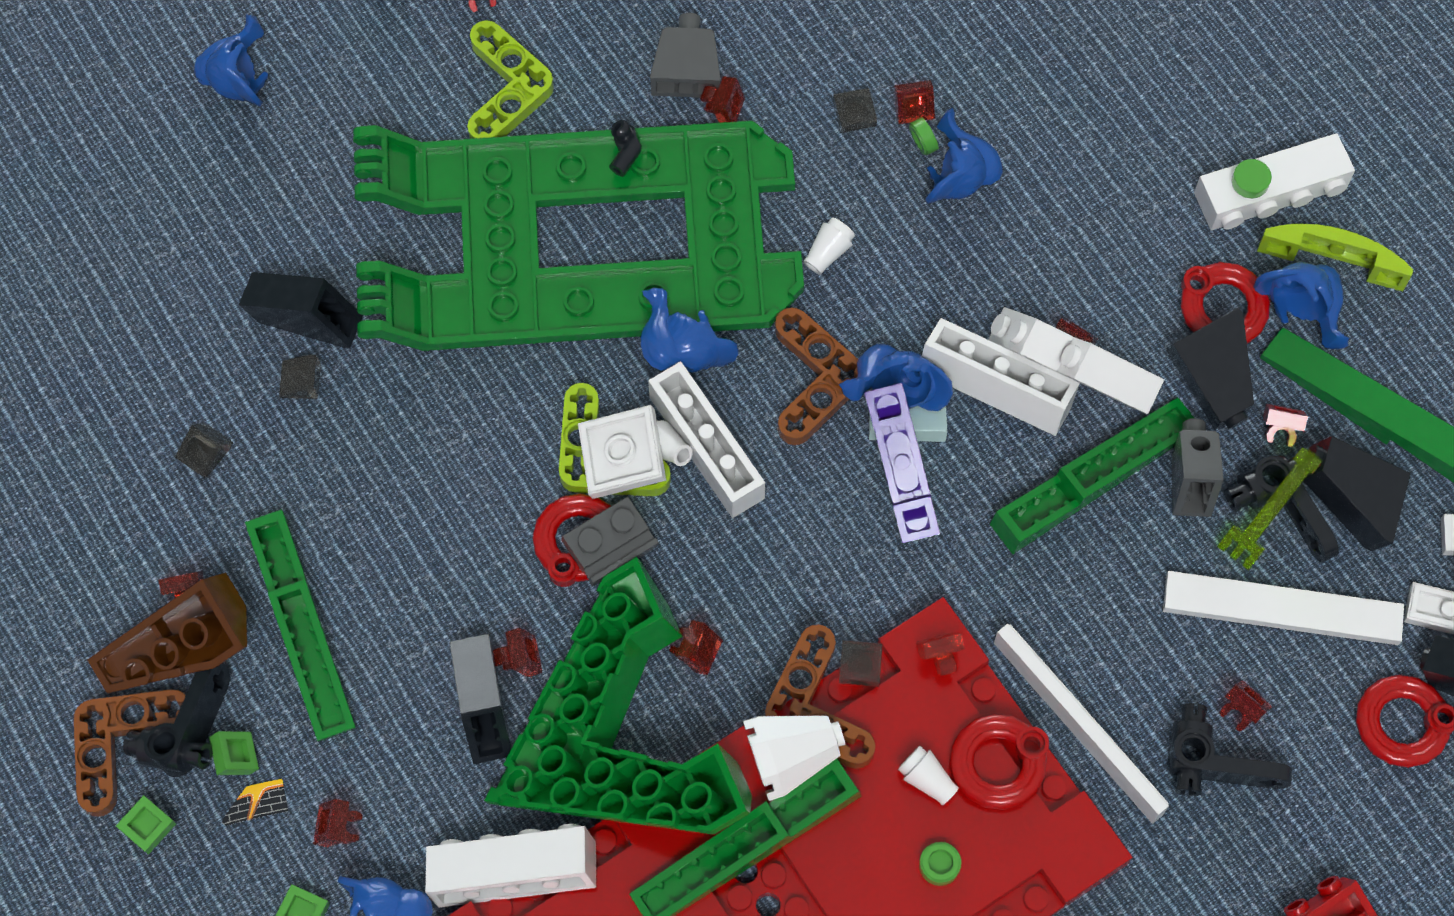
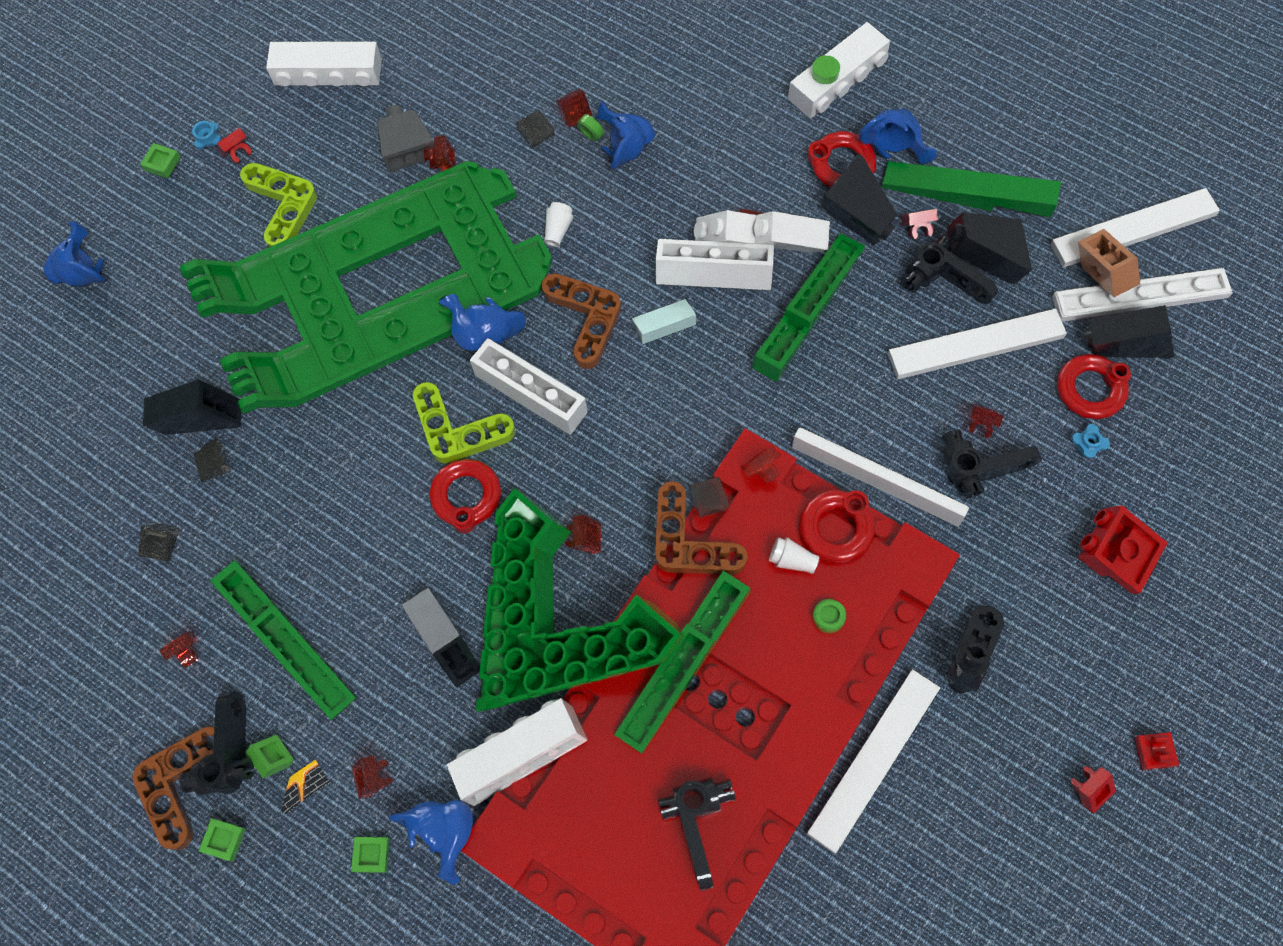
camera: 20 degrees left, 0 degrees up
(181, 638) = (195, 684): reddish brown wedge -> none
(520, 653) = (457, 592): clear red tile -> none
(609, 540) = (489, 485): dark grey plate -> none
(621, 452) = (471, 418): white tile -> none
(627, 145) = (385, 208): black arm -> none
(672, 445) = (498, 401): white cone -> none
(792, 749) = (689, 578): white cone -> none
(885, 366) = (645, 295): blue piece -> none
(902, 462) = (674, 347): slope -> none
(1196, 470) = (878, 274): dark grey torso -> none
(1307, 463) = (932, 308): clear neon green hinge -> none
(1339, 244) = (934, 95): lime slope -> none
(1357, 796) = (1089, 449): none -> dark azure plate

